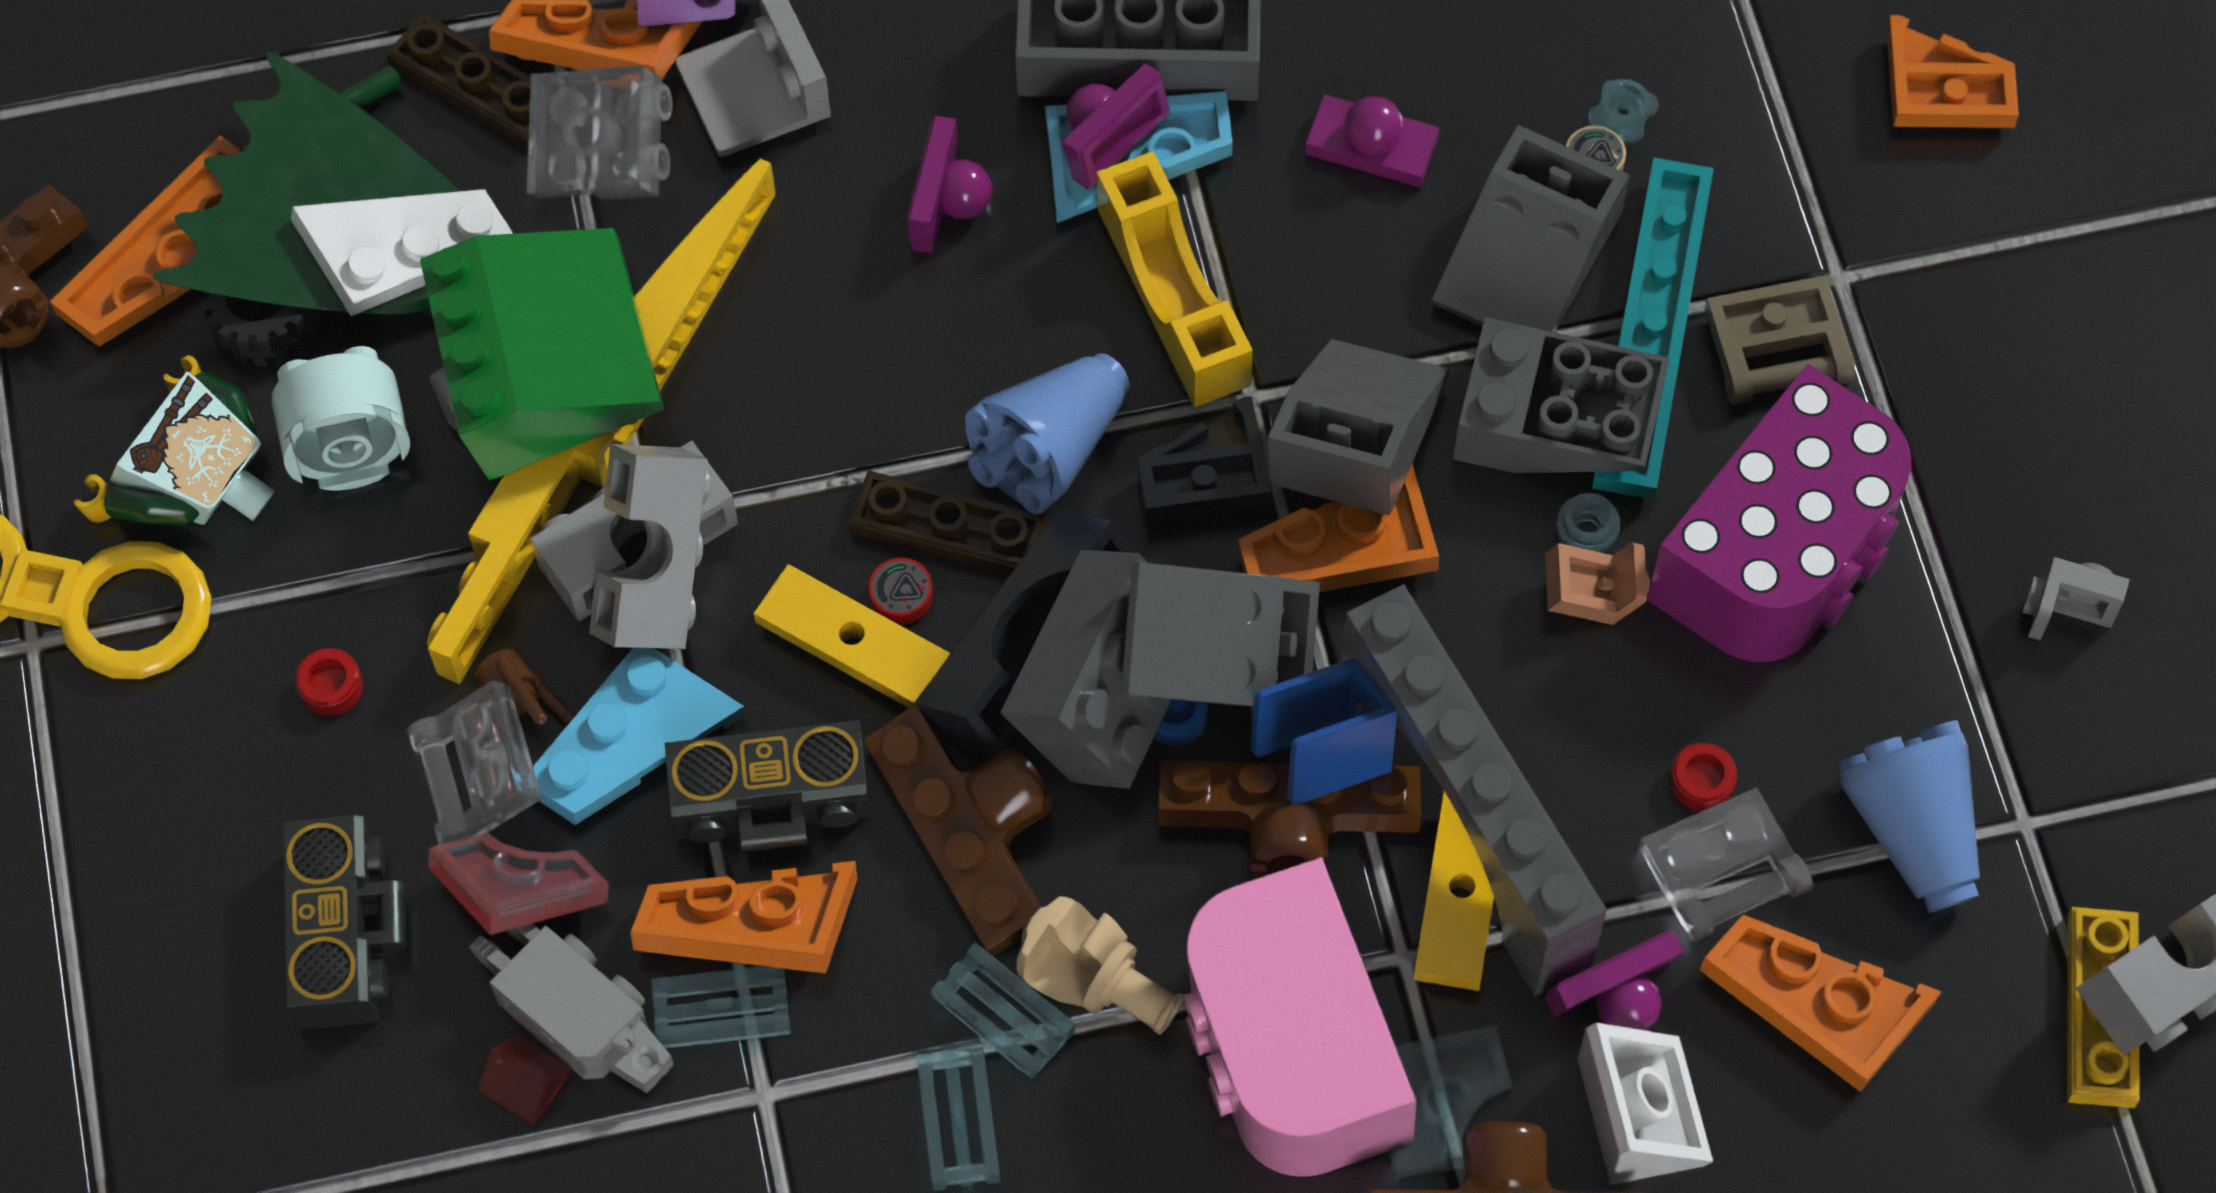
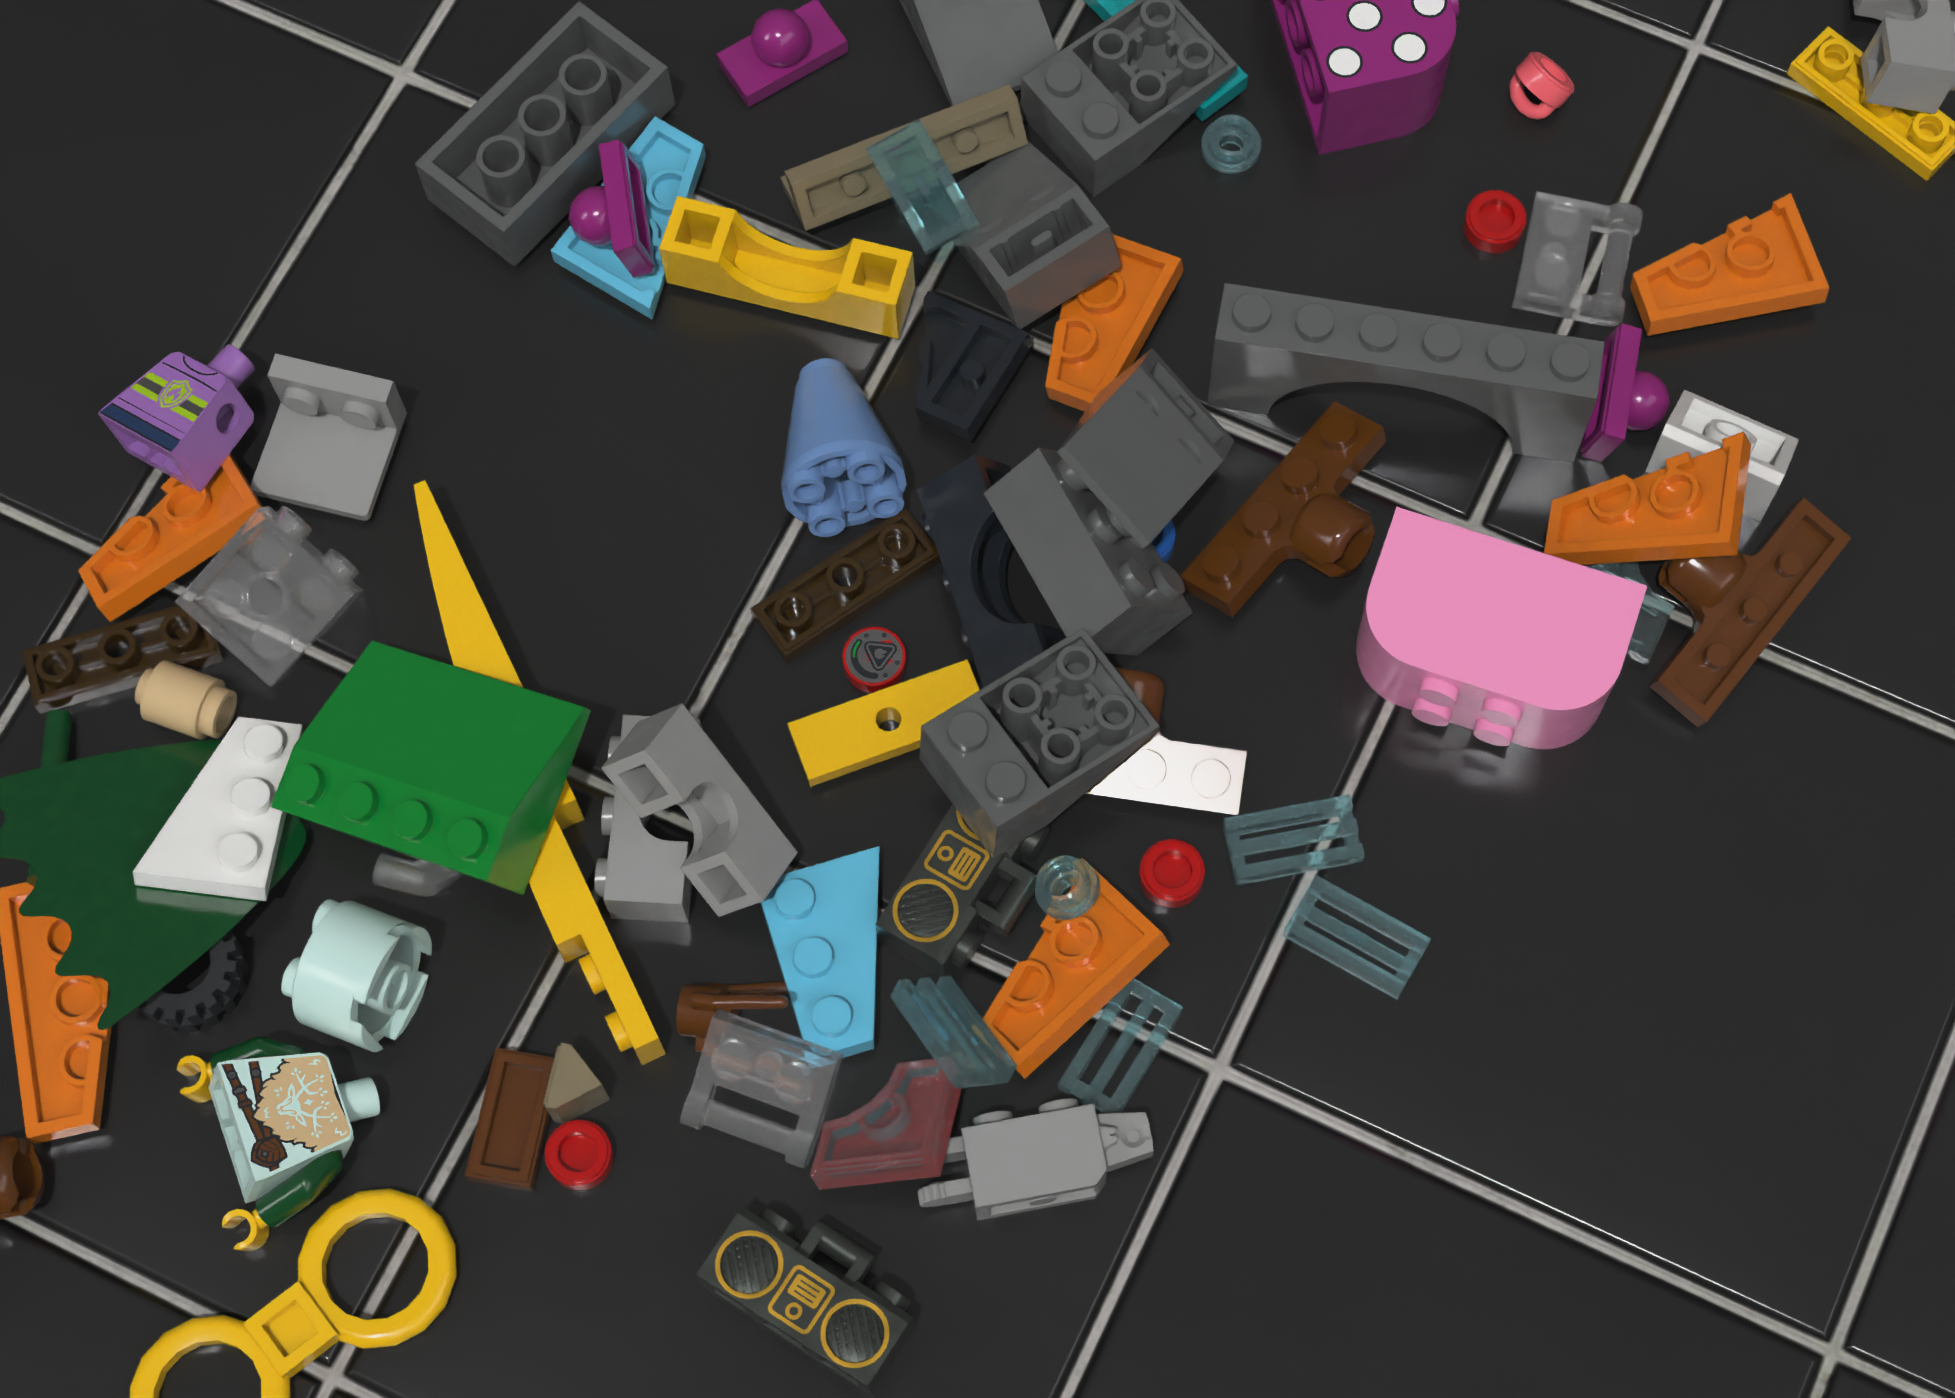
camera: 50 degrees left, 5 degrees up
(322, 615) = (511, 1121): none -> reddish brown tile
(374, 632) = (572, 1086): none -> dark tan slope
(468, 145) = (185, 700): none -> tan brick
(522, 1078) = (1063, 1244): clear red slope -> none
(643, 881) = (953, 1032): none -> clear light blue tile
(812, 861) = (1056, 877): none -> clear light blue plate
(897, 737) = (1034, 741): none -> dark grey slope
(900, 939) = (1171, 873): none -> red tile
(944, 186) = (552, 373): magenta tile -> none
(1089, 964) = (1317, 745): tan piece -> none
(1319, 317) = (922, 187): none -> clear light blue slope
(1326, 729) = (1251, 410): blue piece -> none
(1347, 291) = (850, 182): none -> dark tan fence
(1454, 927) = (1485, 474): yellow tile -> none
(1510, 1079) = (1664, 515): none -> orange wing
(1596, 583) = (1290, 170): nougat bracket -> none
(1862, 719) = (1545, 81): none -> coral tile
(1920, 810) = (1649, 96): medium blue cone -> none

